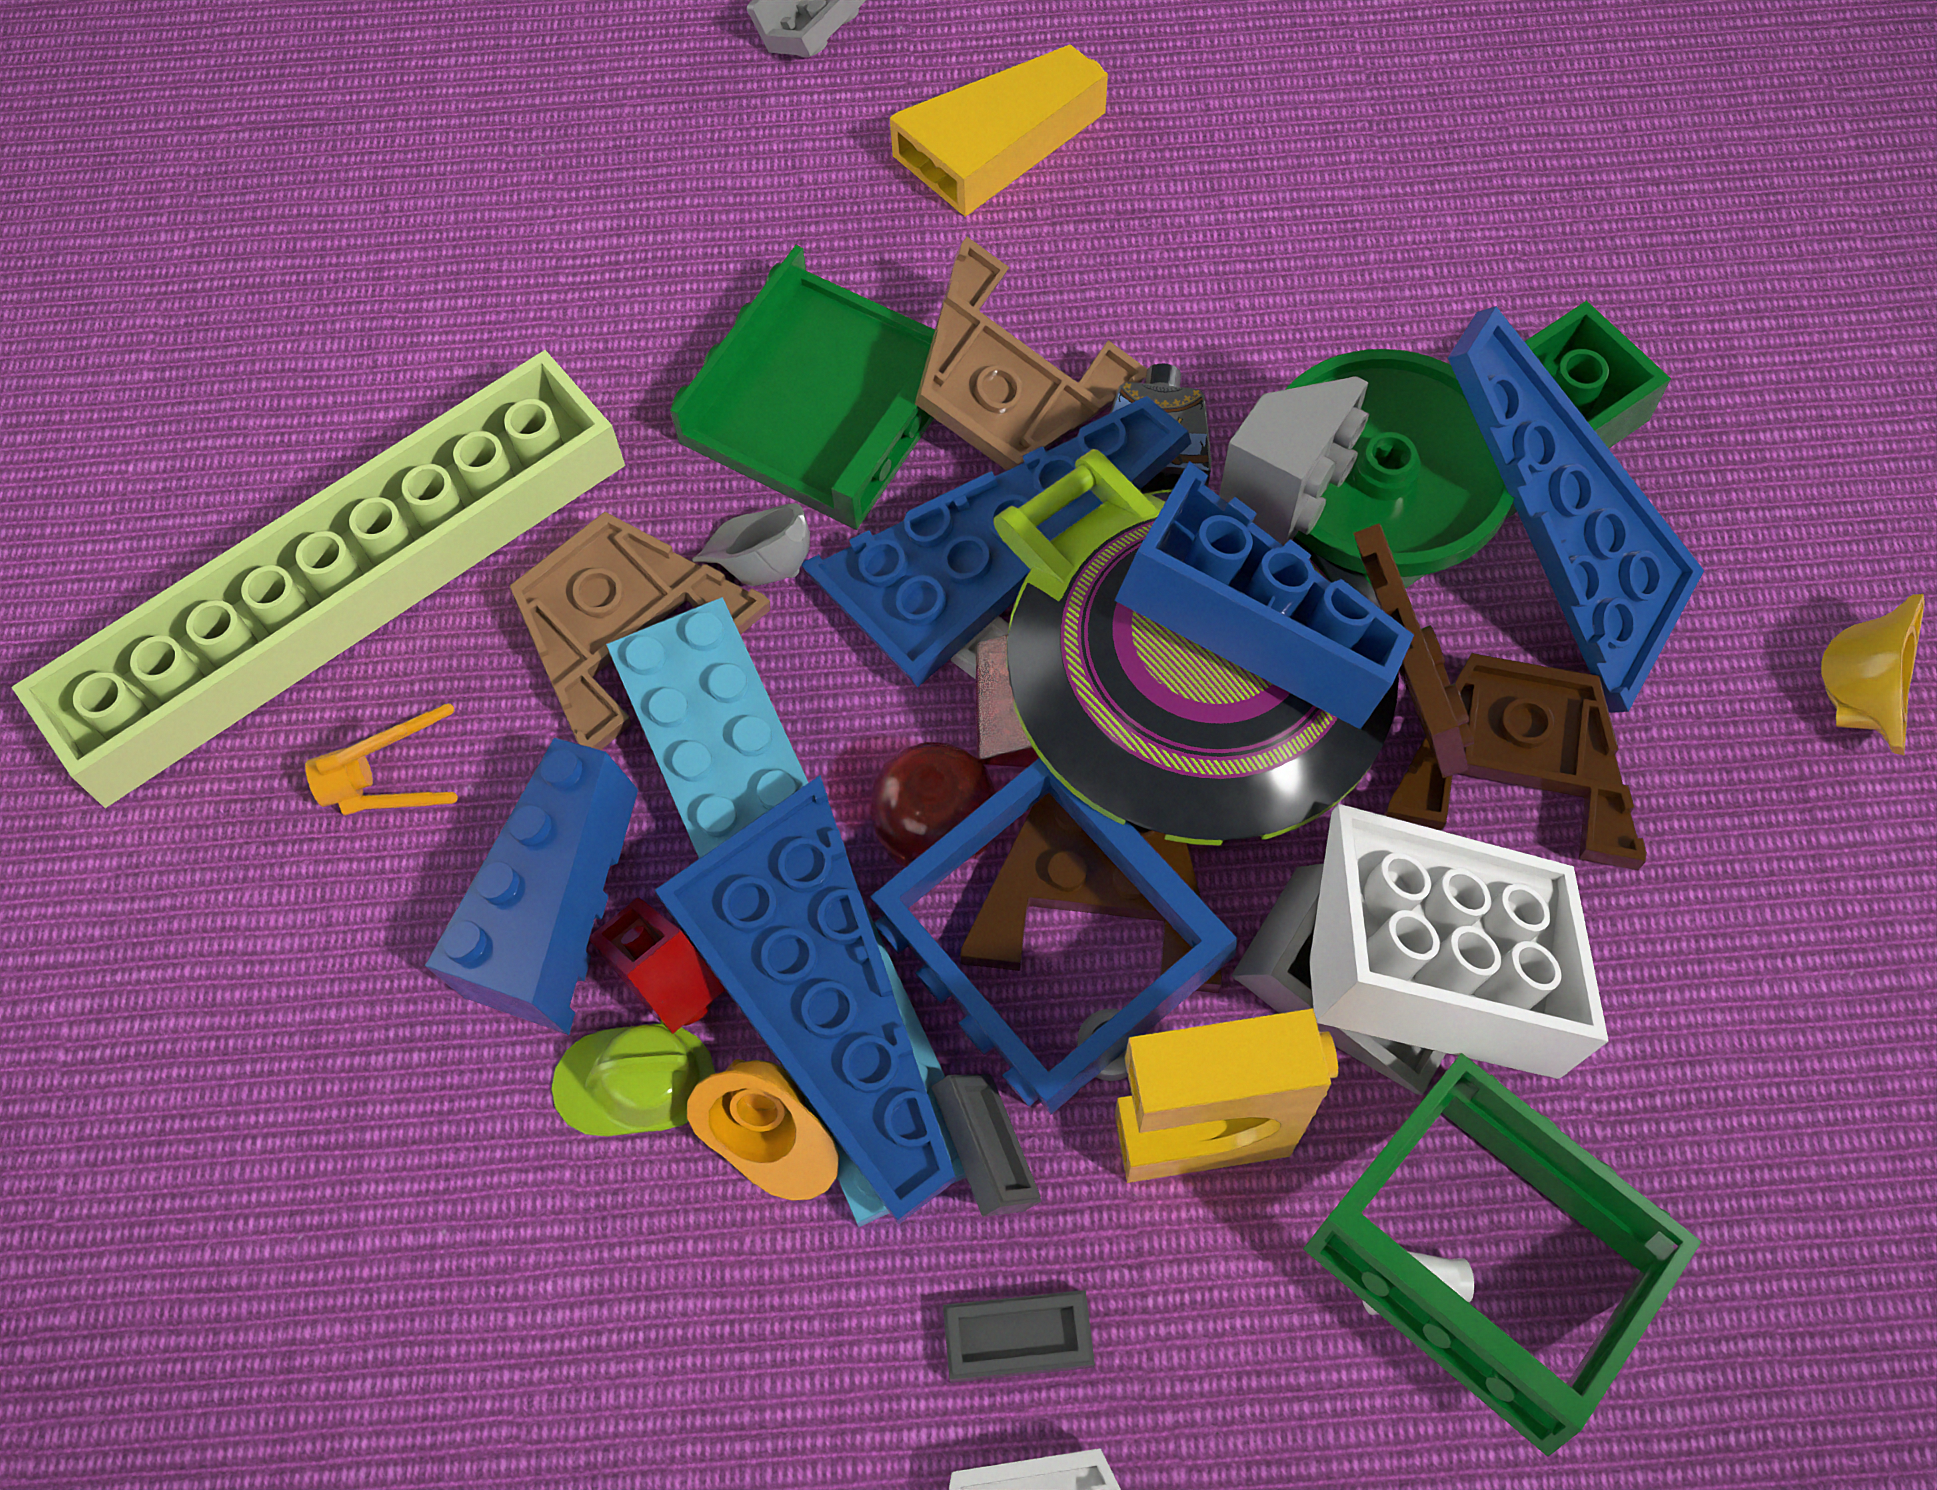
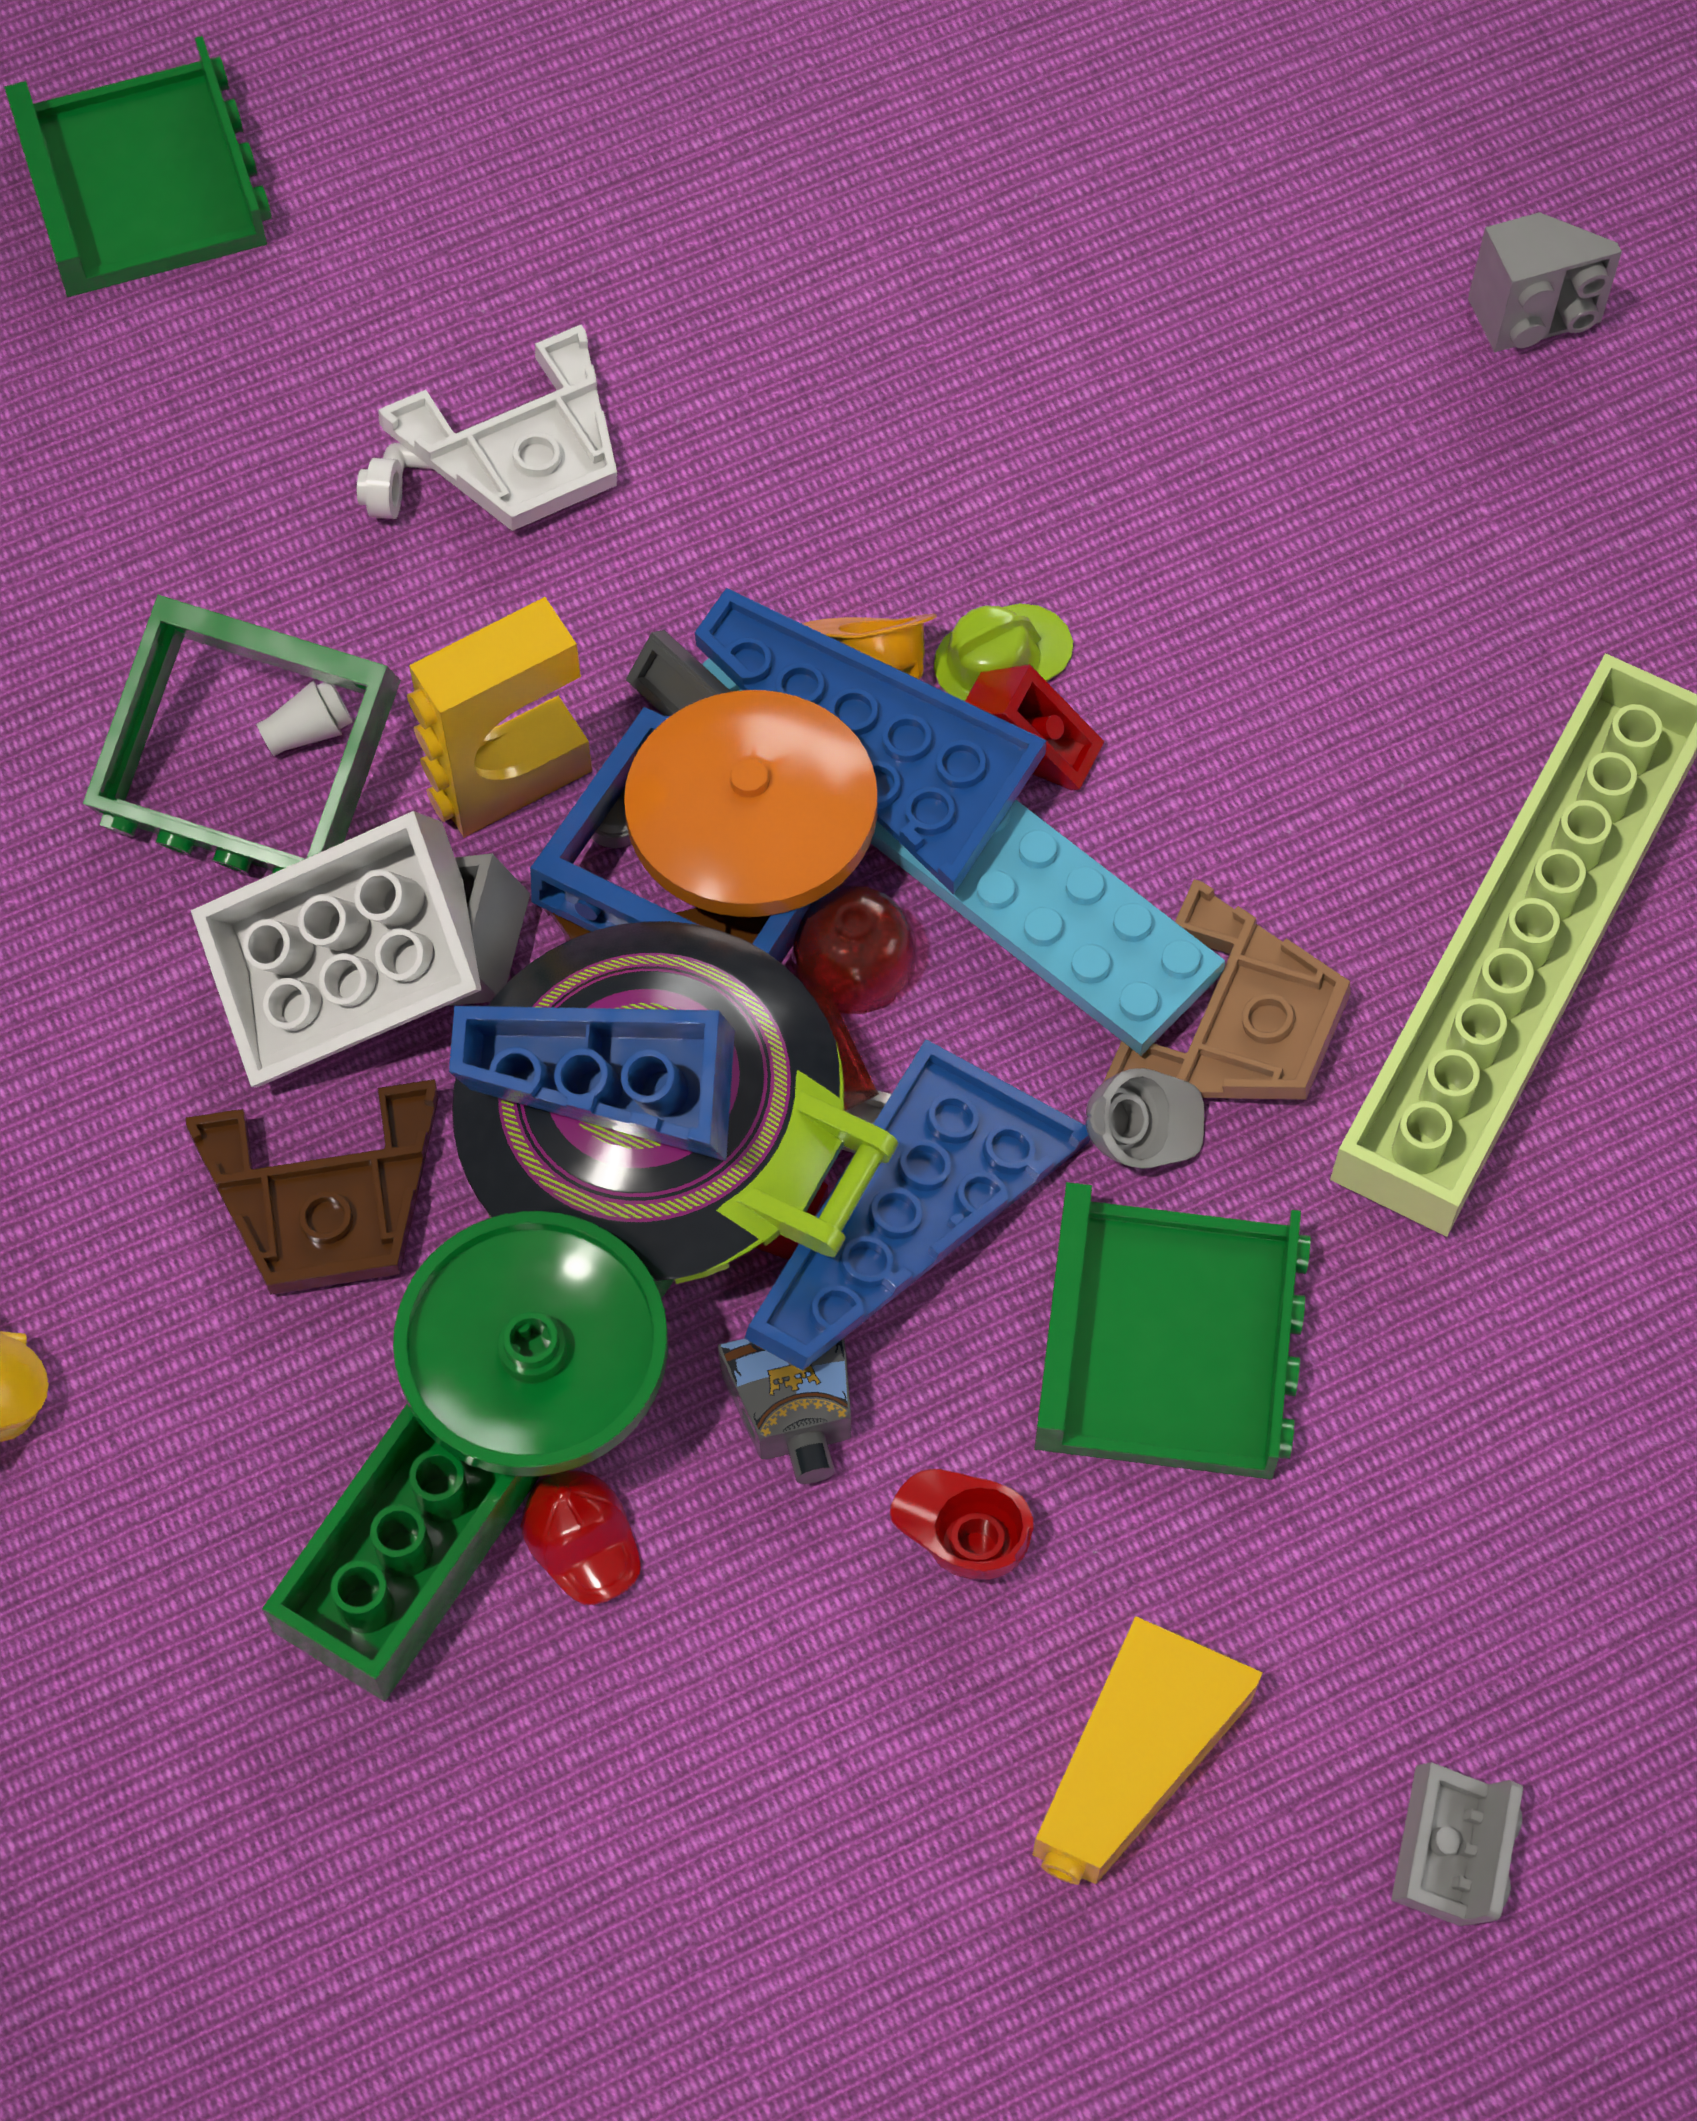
camera: 155 degrees right, 0 degrees up
(345, 772) = (1394, 784): light orange plant -> none
(536, 896) = (1154, 732): blue wedge -> none
(982, 929) = (751, 803): none -> orange dish
(996, 386) = (975, 1369): medium nougat wing -> none
(1018, 1336) = (607, 584): dark grey tile -> none
(1063, 291) = (964, 1522): none -> red piece
(1293, 451) = (620, 1223): light grey slope -> none
(1422, 669) = (438, 1137): reddish brown wing -> none
(1592, 527) = (320, 1380): blue wing -> none

